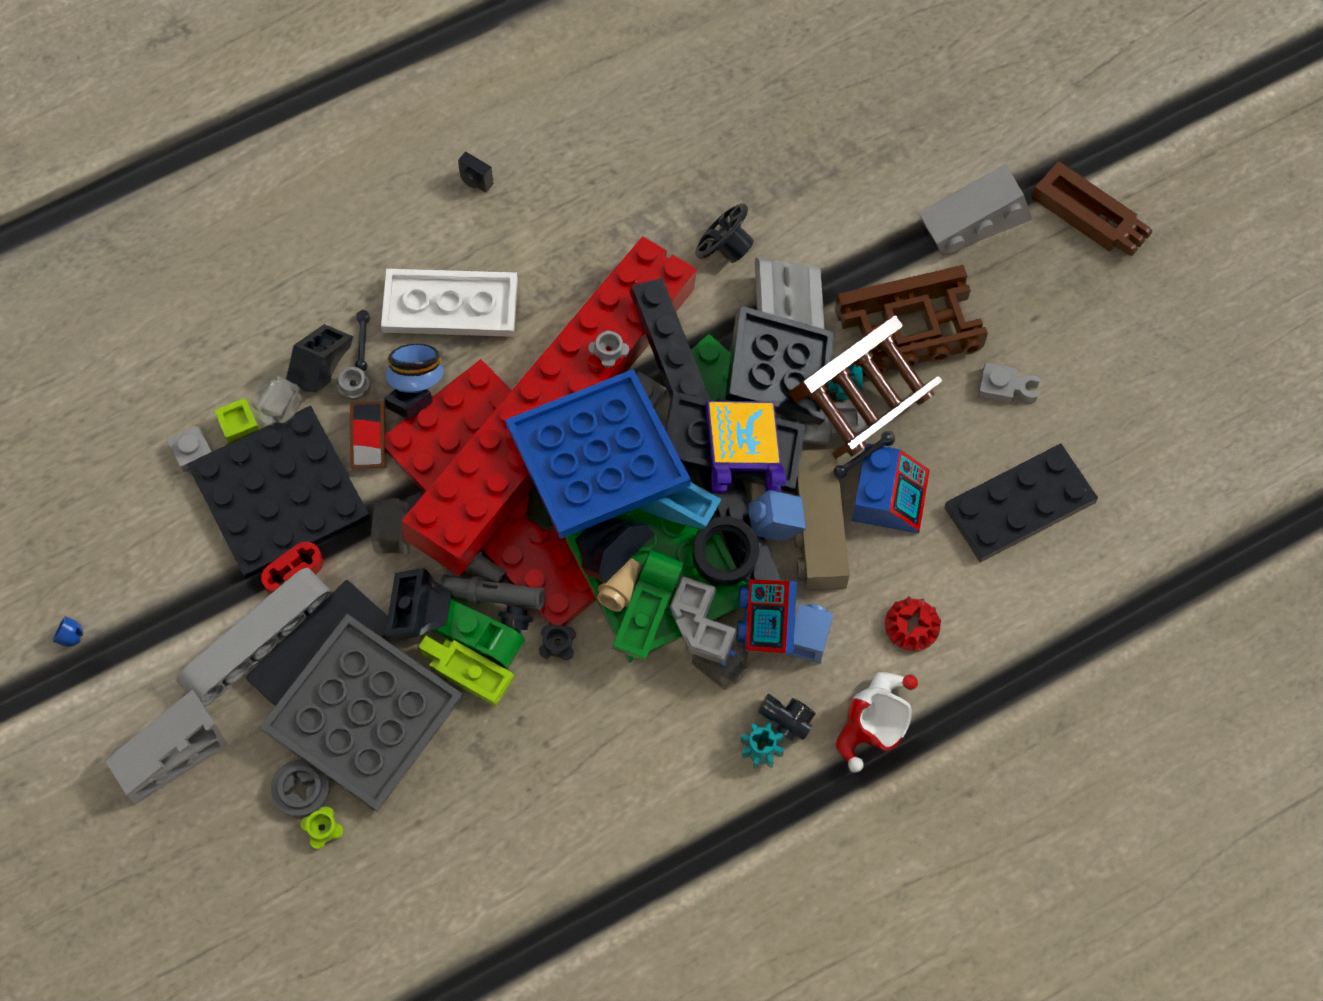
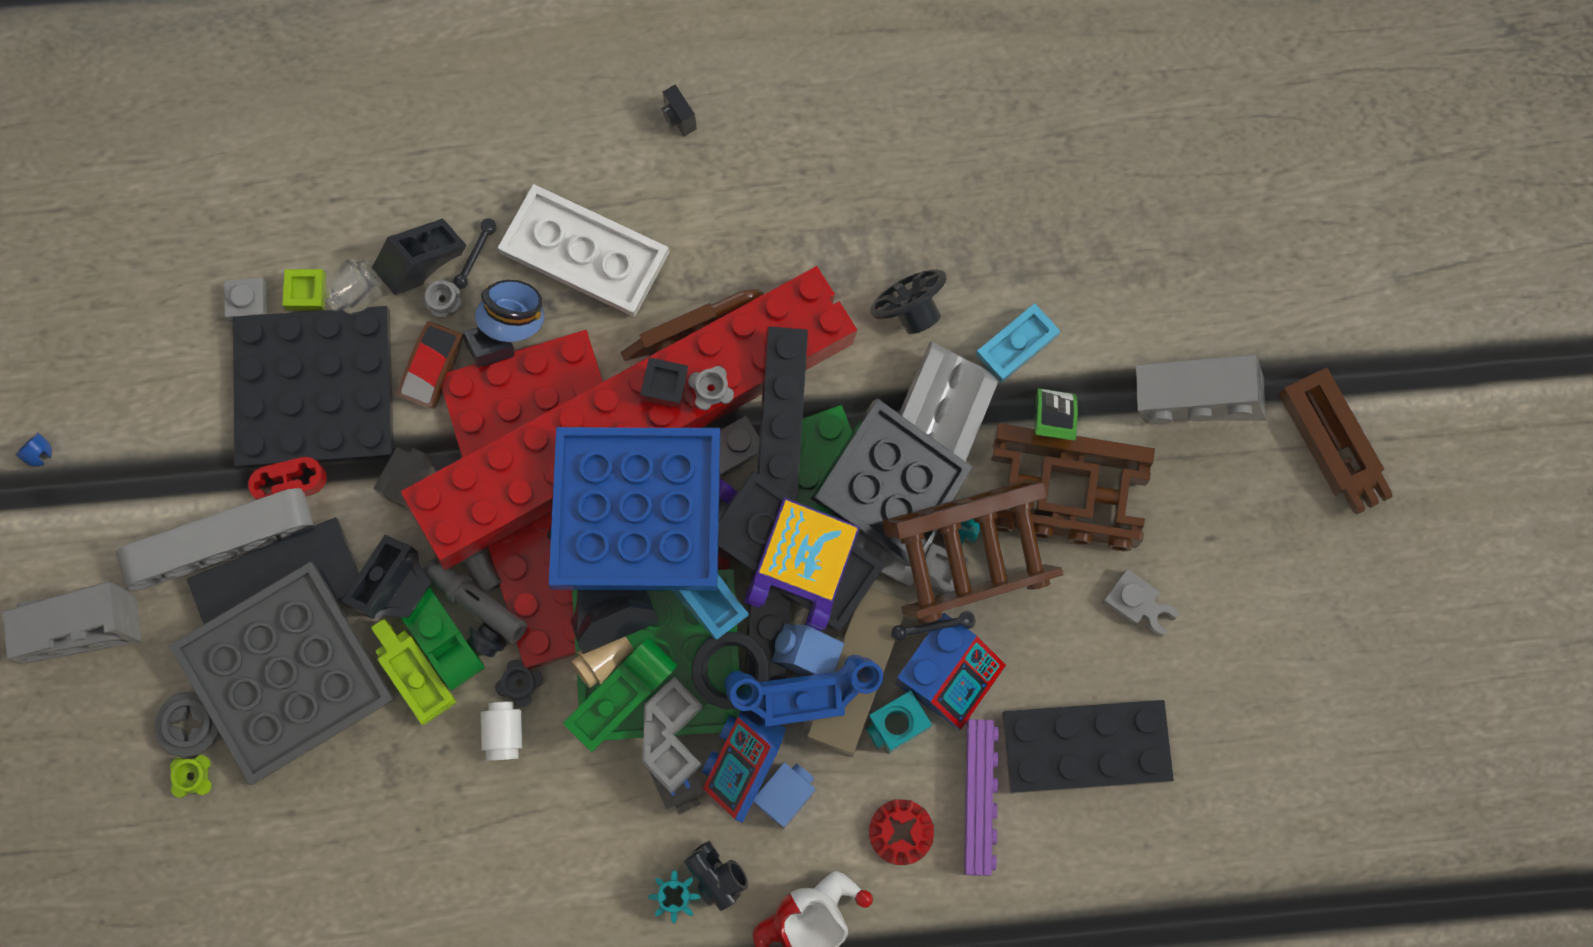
camera: 25 degrees right, 10 degrees up
(553, 327) = (686, 324): none -> reddish brown plate
(562, 682) = (501, 731): none -> white brick
(571, 357) = (664, 382): none -> black plate
(794, 543) = (804, 696): none -> blue plate
(820, 236) = (1018, 343): none -> medium azure plate
(874, 530) = (907, 707): none -> teal brick
(877, 271) = (1056, 414): none -> slope
(959, 573) = (979, 798): none -> medium lavender piece

